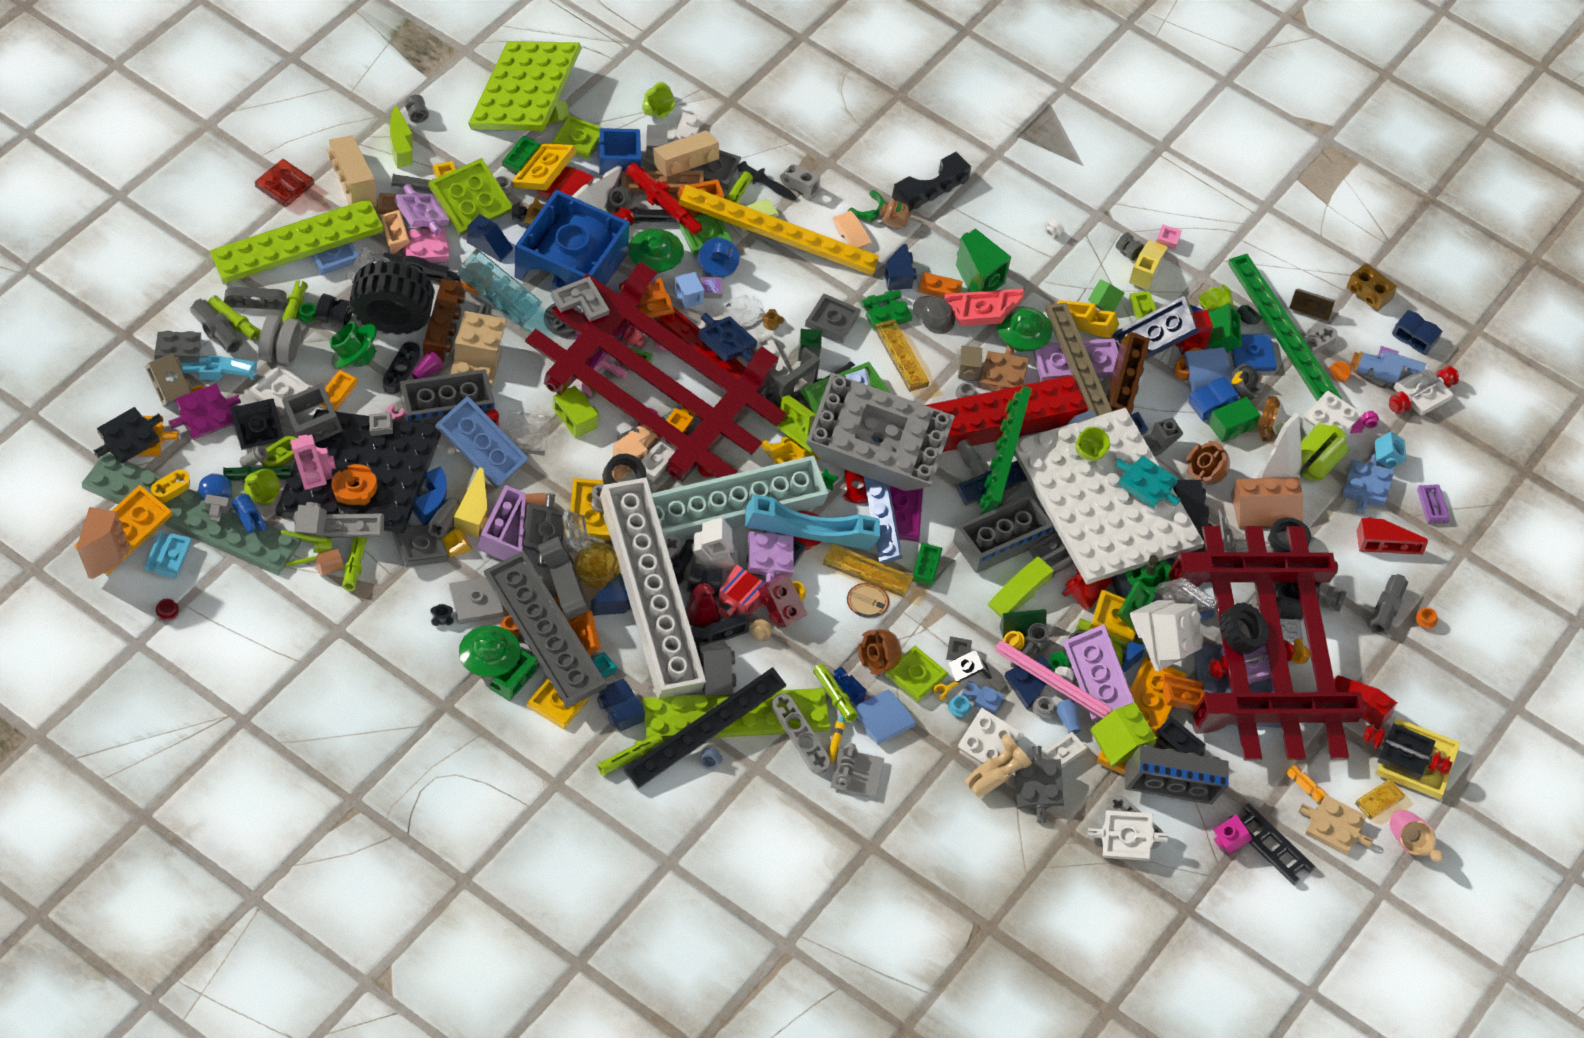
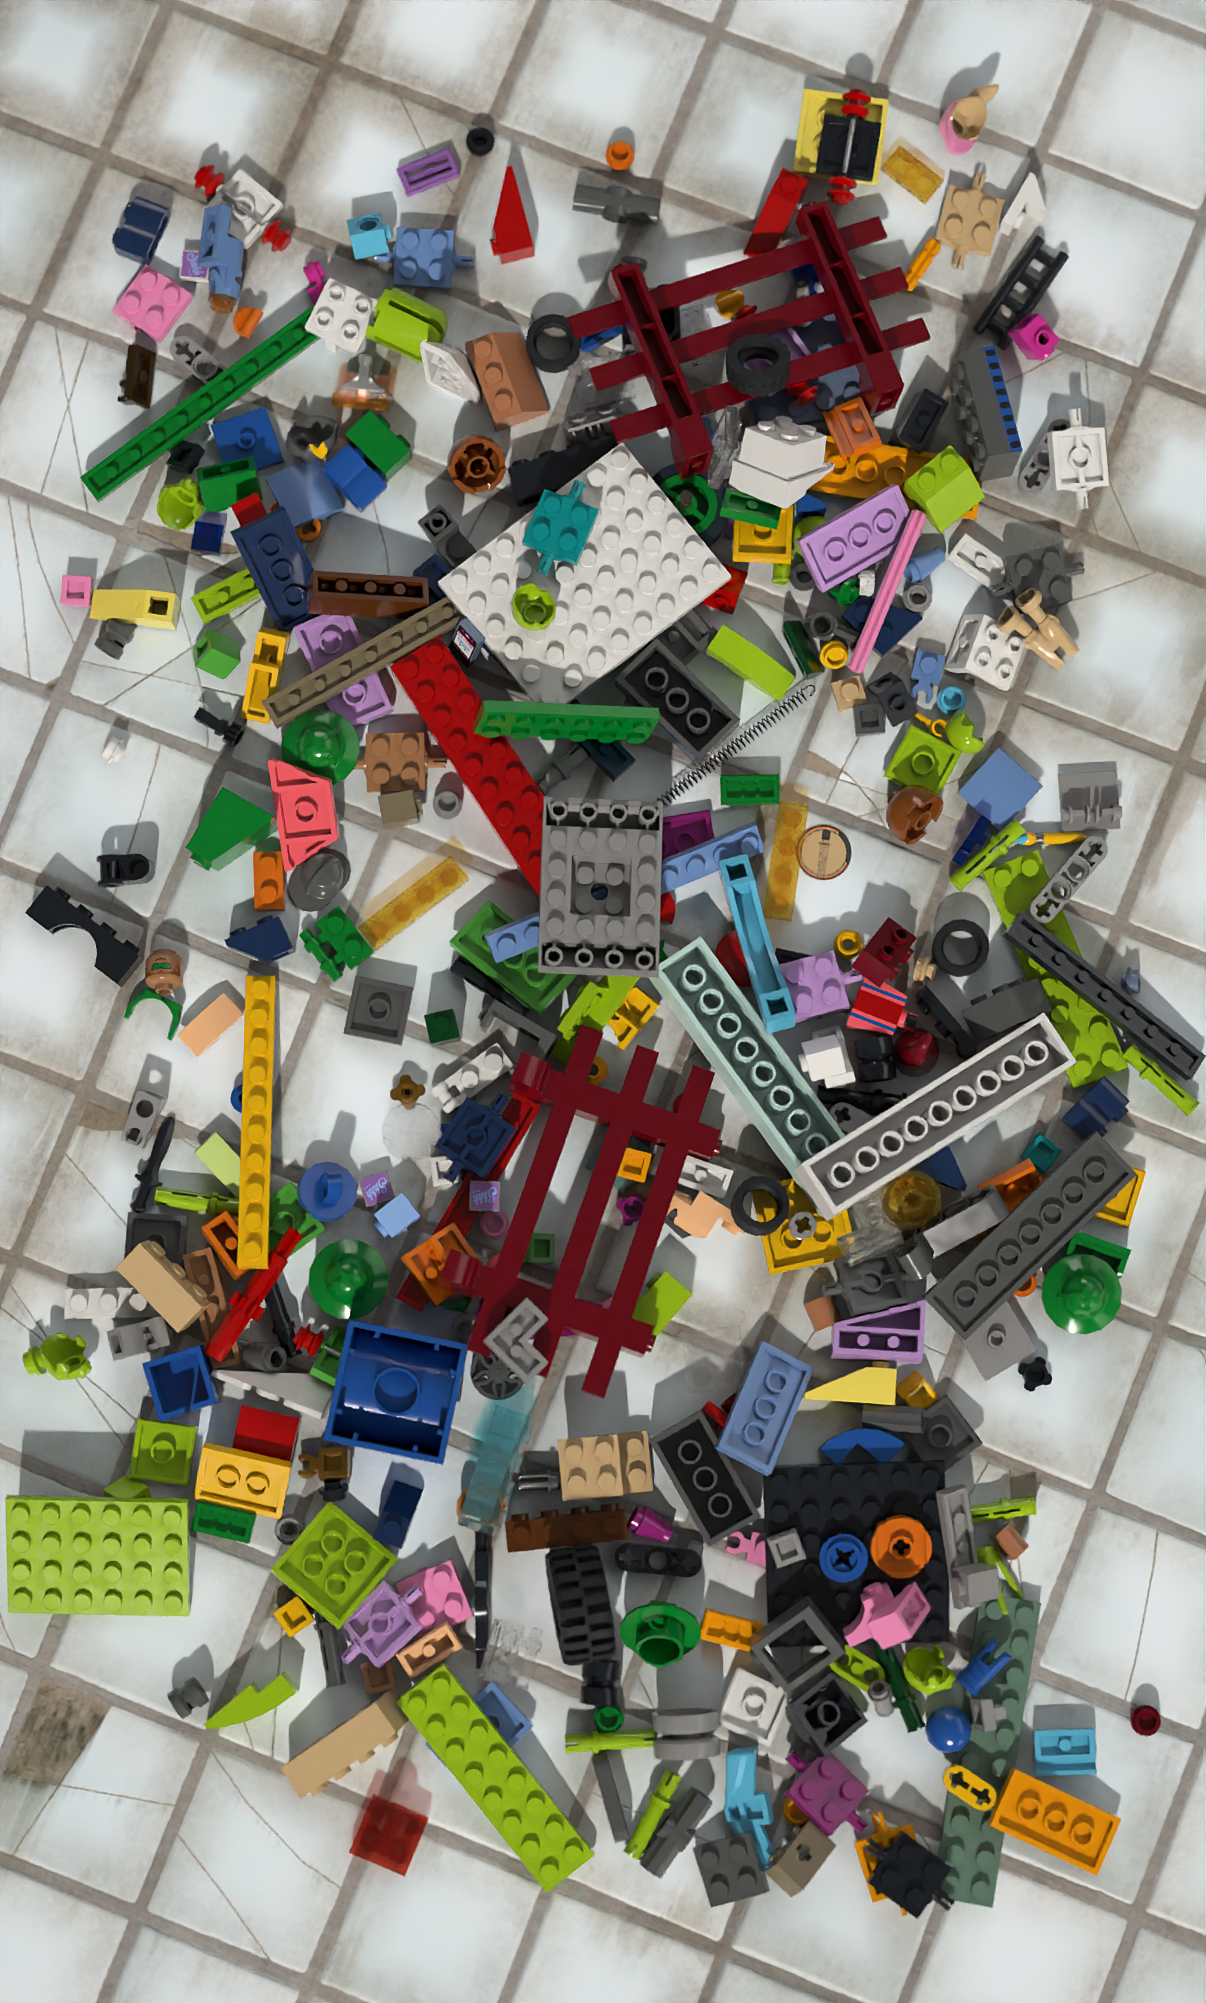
camera: 95 degrees left, 30 degrees up
(101, 542) = (1113, 1834): nougat slope -> none
(366, 445) = (840, 1571): none -> blue gear
(687, 333) = (484, 1196): none -> medium lavender tile
(752, 427) = (601, 1075): none -> light orange plate
(770, 642) = (982, 943): none -> black tyre
(932, 702) = (960, 734): none -> lime hair
(958, 558) = (733, 748): none -> black piece
(970, 214) = (118, 870): none -> black piece
(983, 644) = (848, 693): none -> tan plate
(1049, 290) = (232, 733): none -> black piece
(1344, 863) = (1027, 202): none -> white slope
(1363, 327) = (153, 304): none -> bright pink plate
(1371, 286) = (72, 300): pearl gold brick -> none
(1451, 538) = (476, 134): none -> black plate

